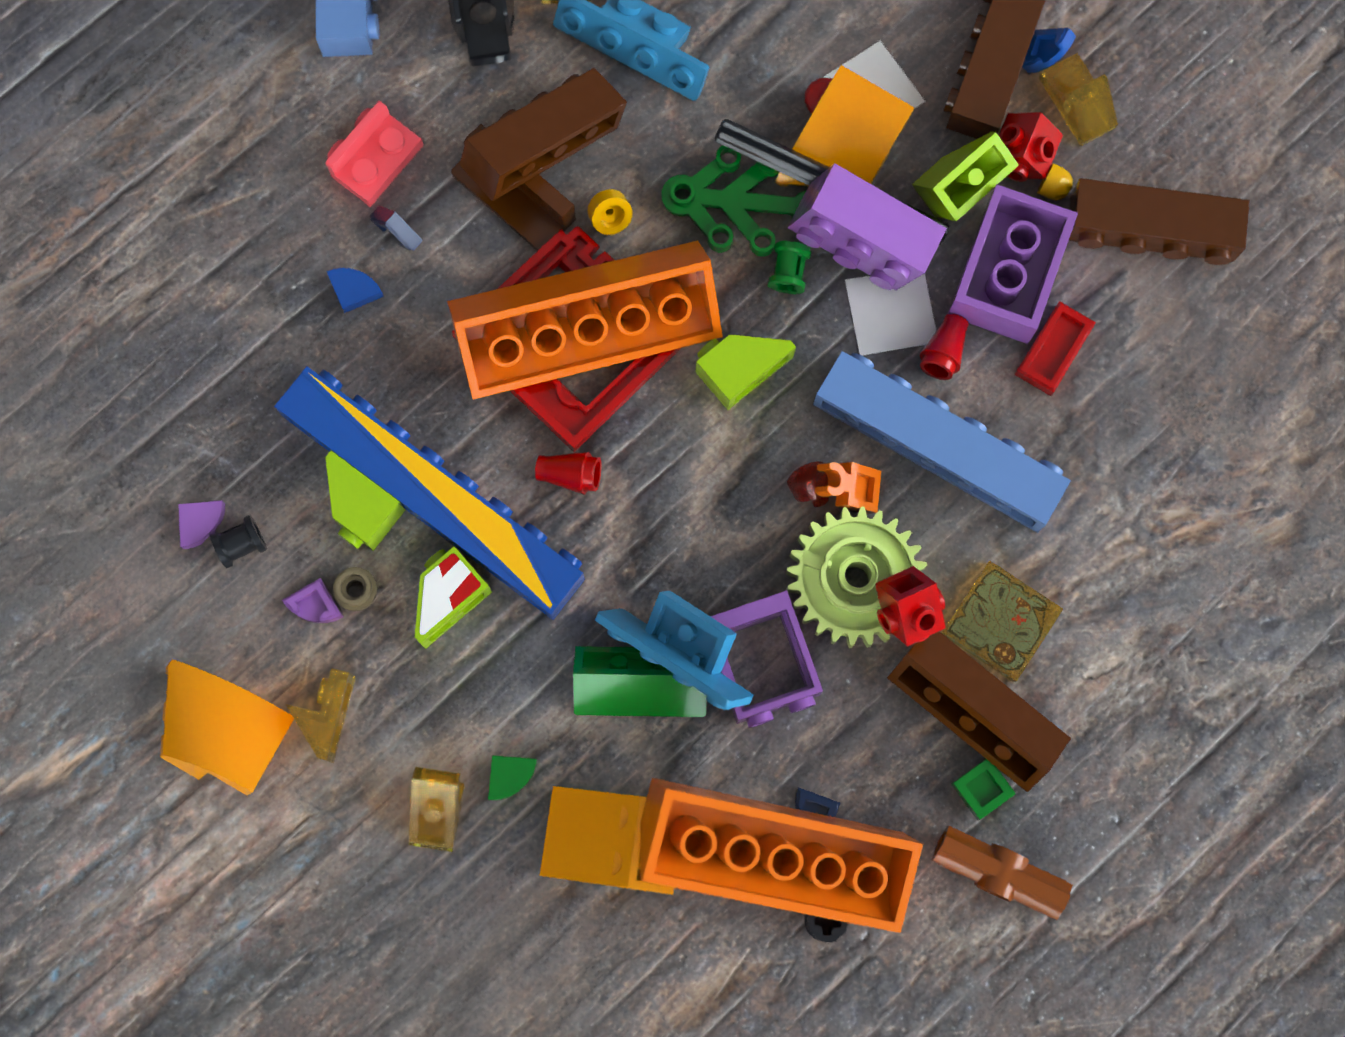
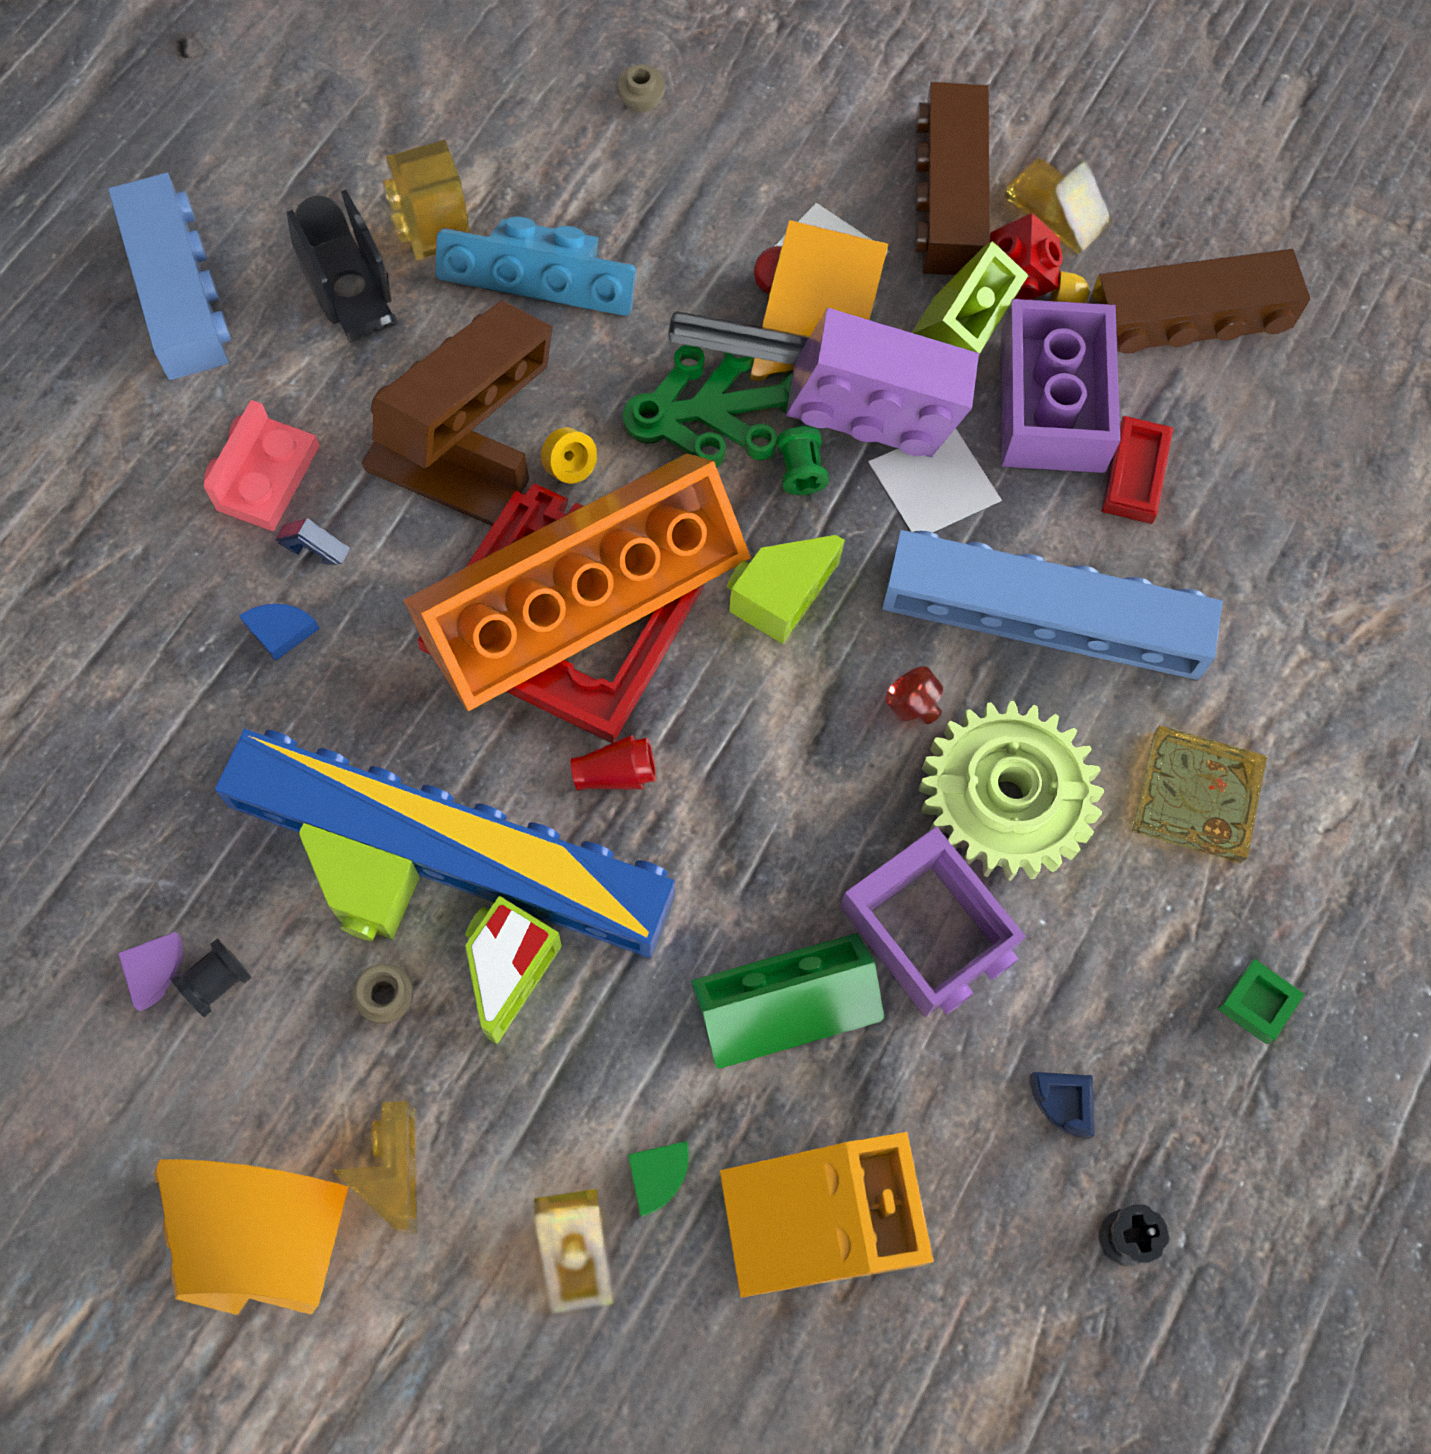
camera: 20 degrees left, 10 degrees down
(314, 603) = (333, 1029): medium lavender tile -> none
(684, 643) = (835, 926): dark azure bracket -> none
(776, 856) = (1047, 1165): orange slope -> none
(852, 485) = (966, 681): orange plate -> none
(910, 606) = (1098, 796): red brick -> none
(944, 350) = (1015, 503): red cone -> none
(980, 709) = (1222, 902): reddish brown brick -> none
(1002, 872) = (1326, 1100): dark orange piece -> none
(1047, 48) = (1008, 159): blue tile -> none

